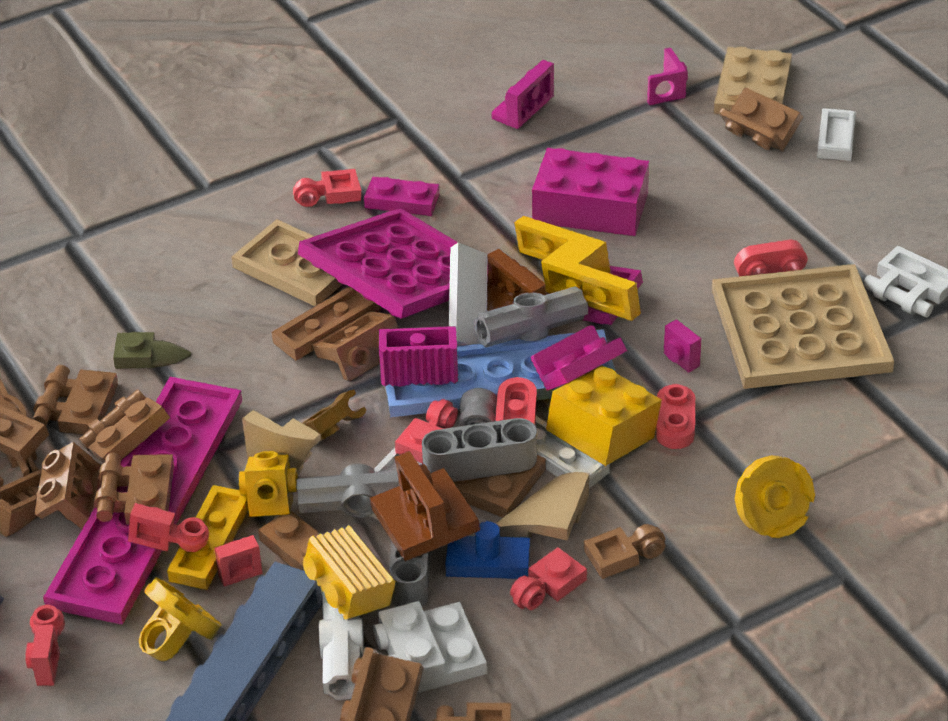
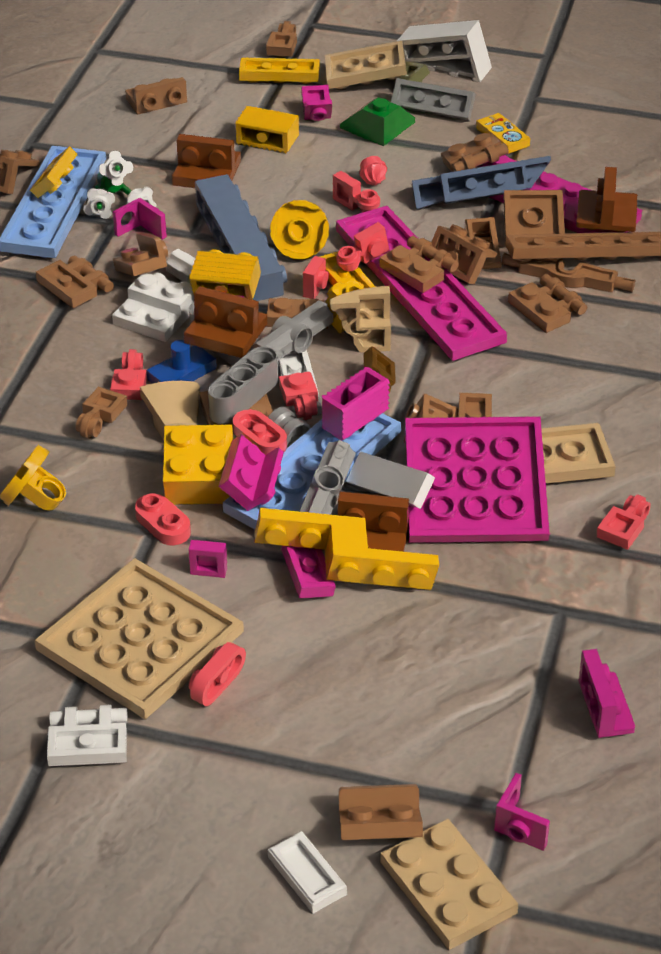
camera: 135 degrees right, 0 degrees up
(124, 426) = (475, 288): medium nougat plate -> none
(143, 351) = (559, 353): olive plate -> none
(411, 196) = (573, 559): dark pink plate -> none
(590, 191) = (428, 639): dark pink brick -> none

